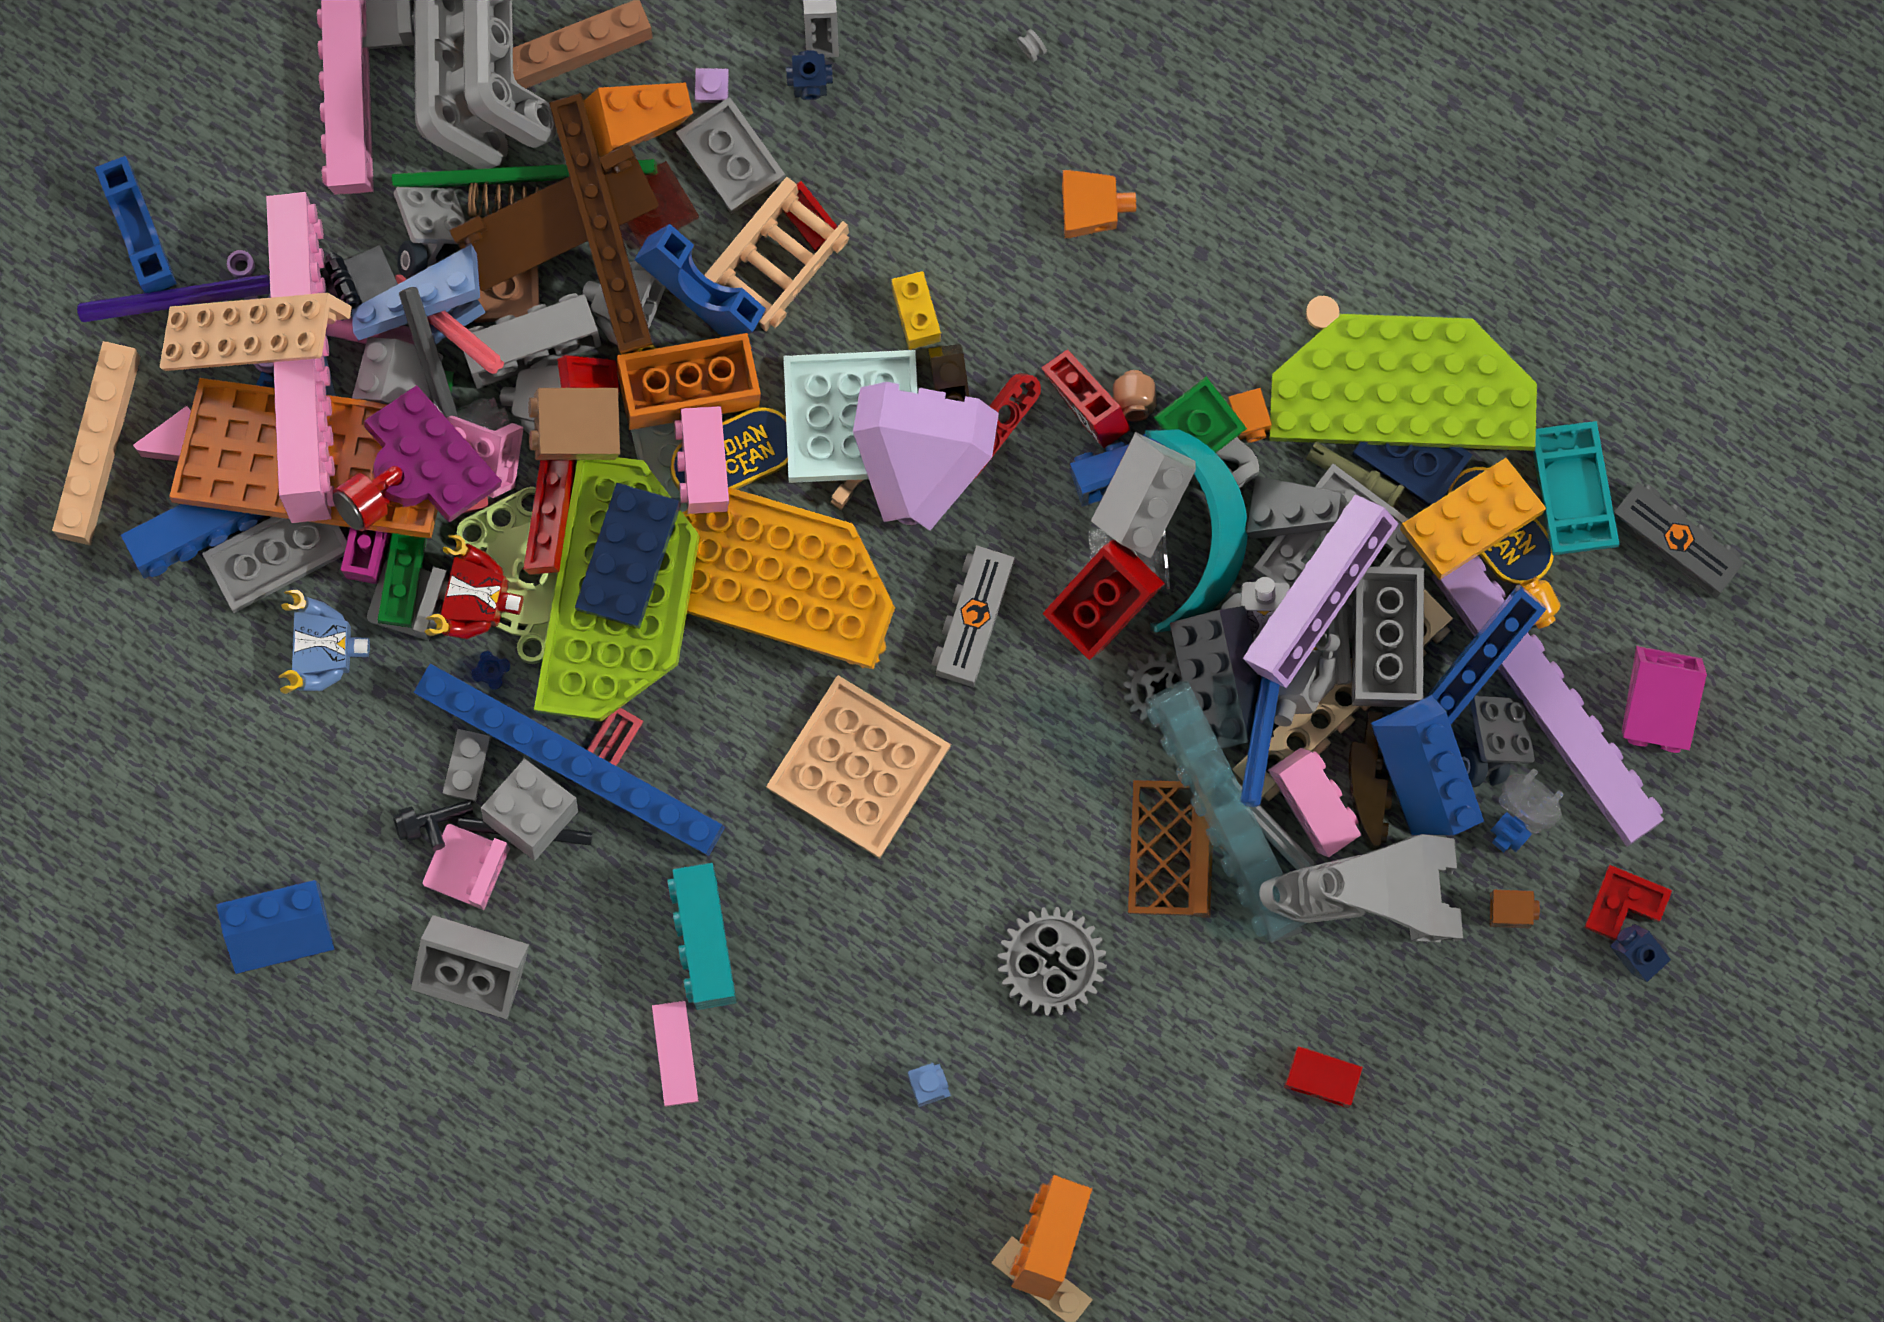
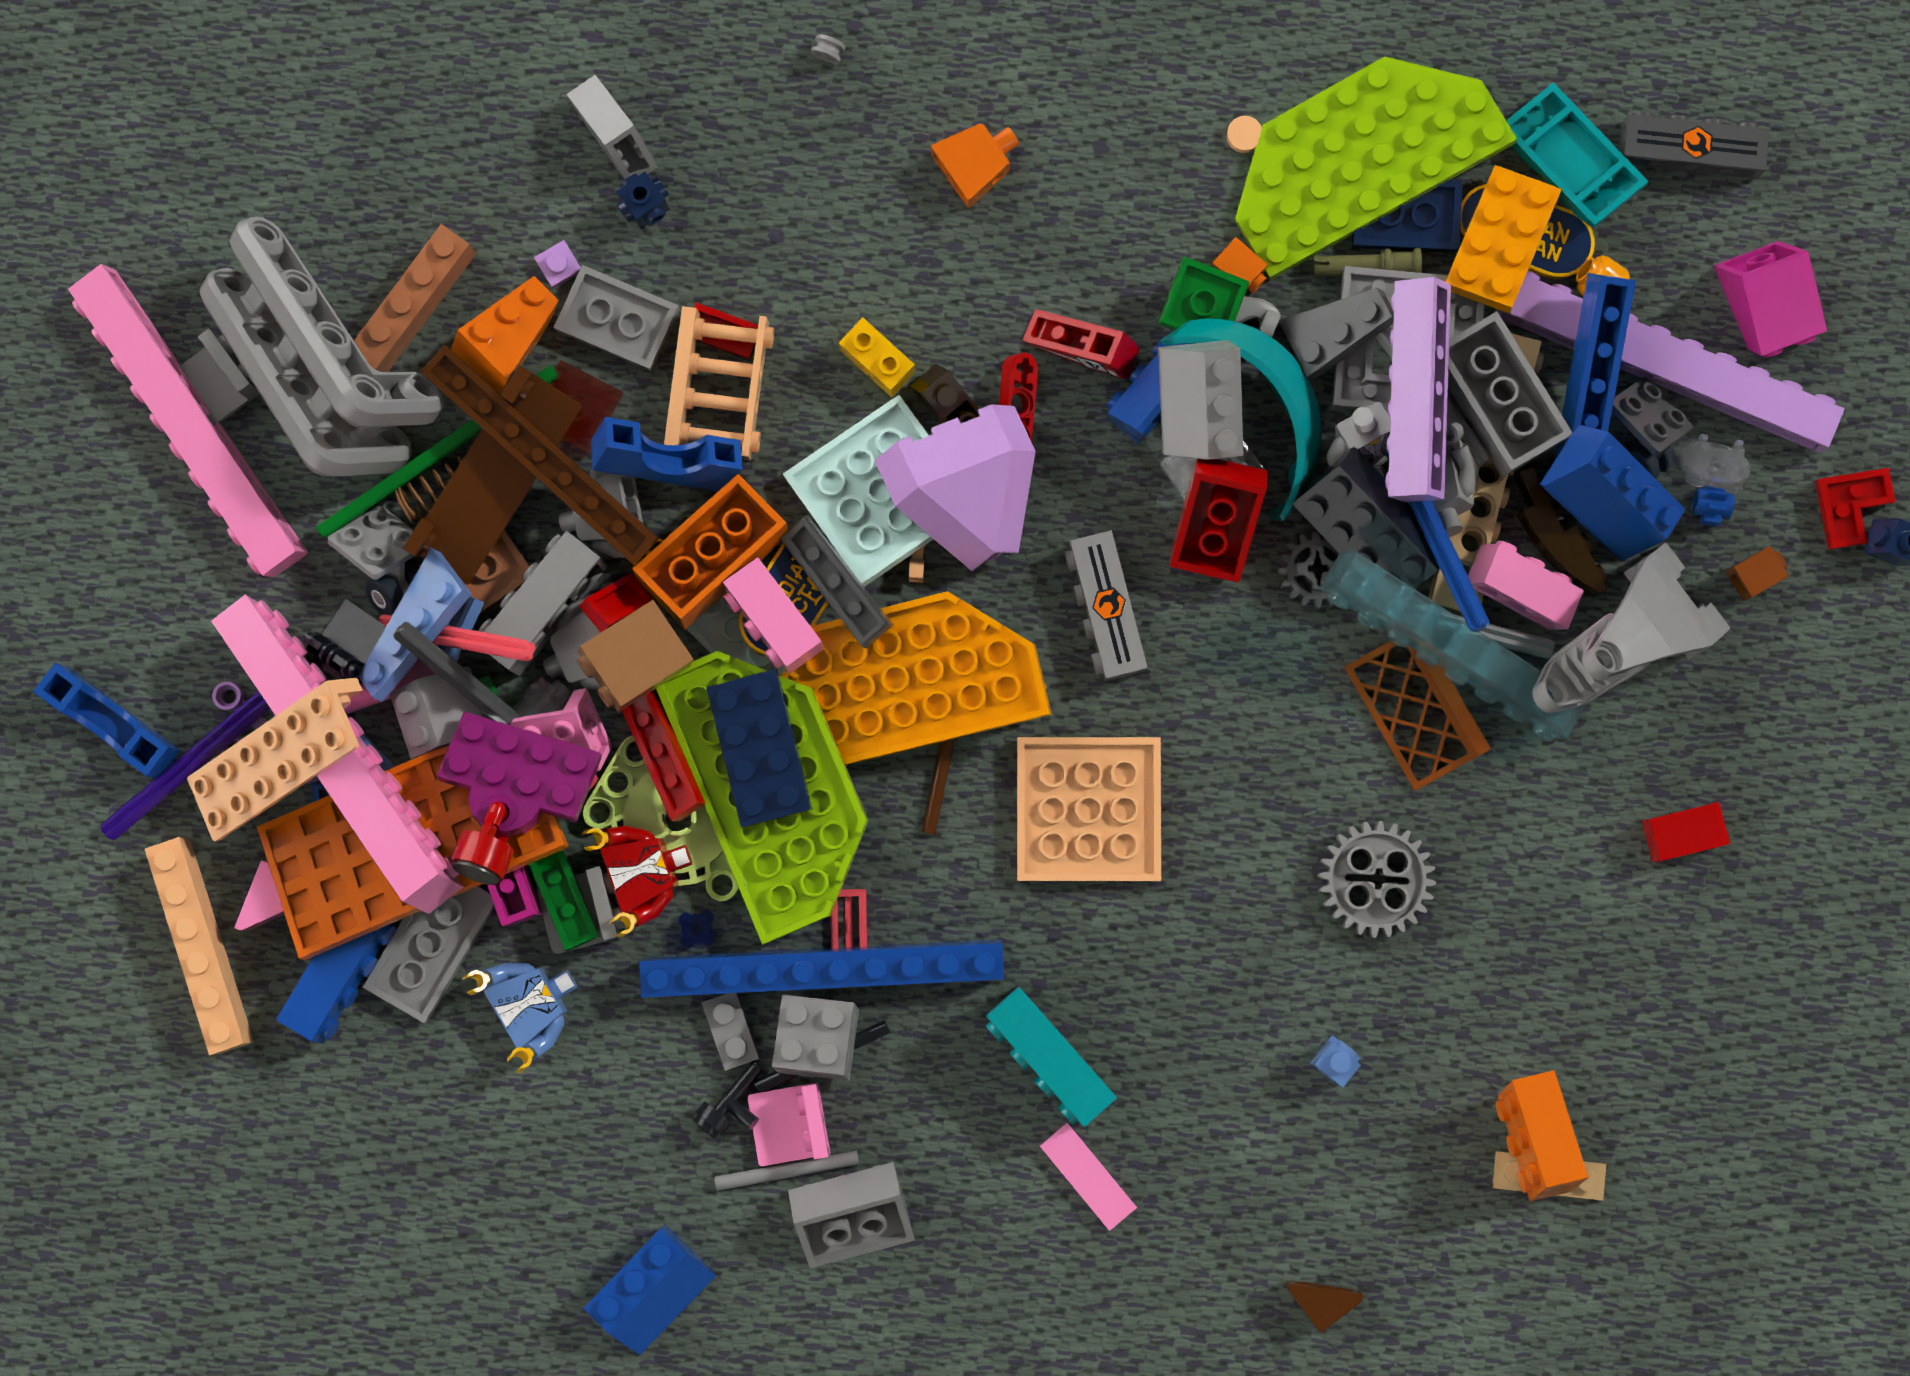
camera: 25 degrees left, 5 degrees up
(441, 902) = (786, 1170): none -> light grey bar
(751, 675) = (937, 787): none -> reddish brown bar
(771, 464) = (836, 582): none -> dark grey tile
(796, 1266) = (1323, 1303): none -> reddish brown slope
(1135, 395) = (1125, 312): nougat head -> none

